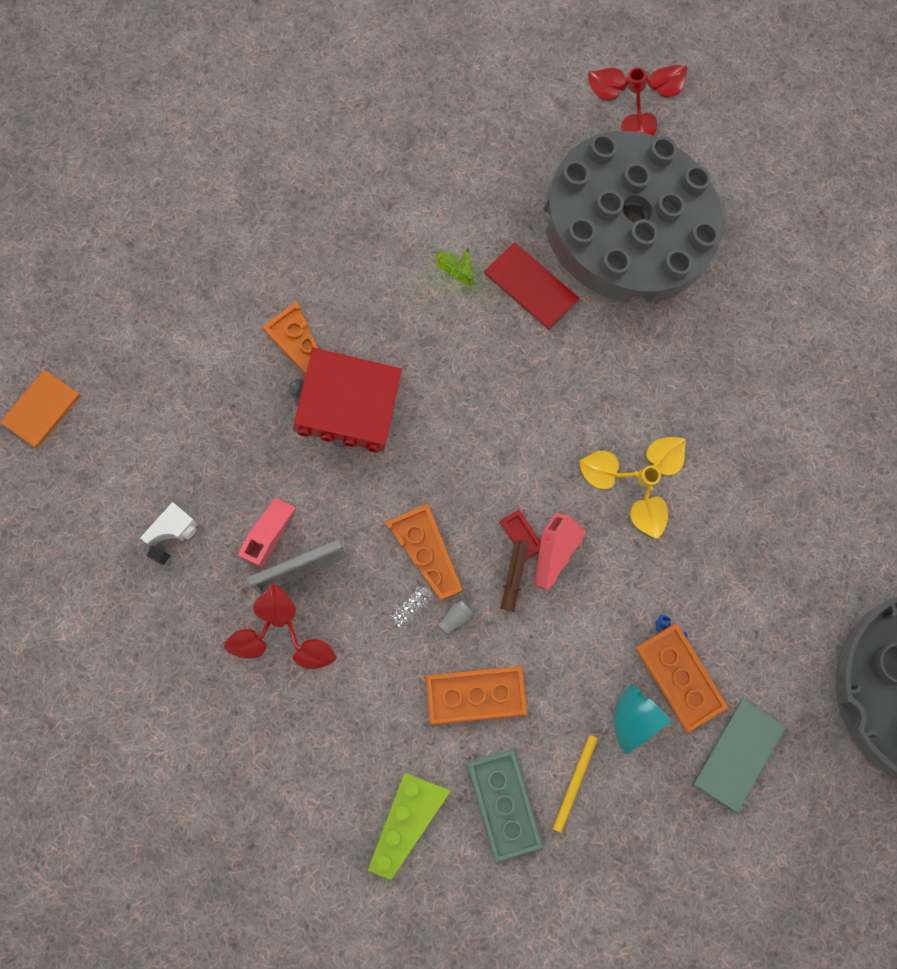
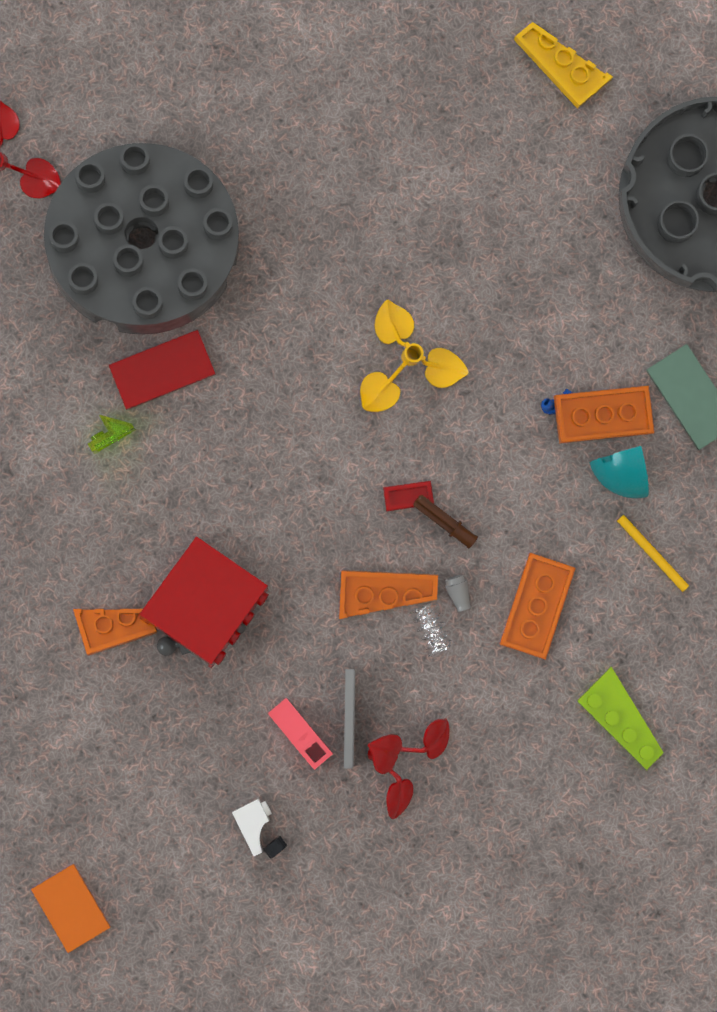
camera: 70 degrees left, 10 degrees up
(505, 805) = (644, 624): sand green tile -> none
(557, 545) = (436, 469): coral slope -> none

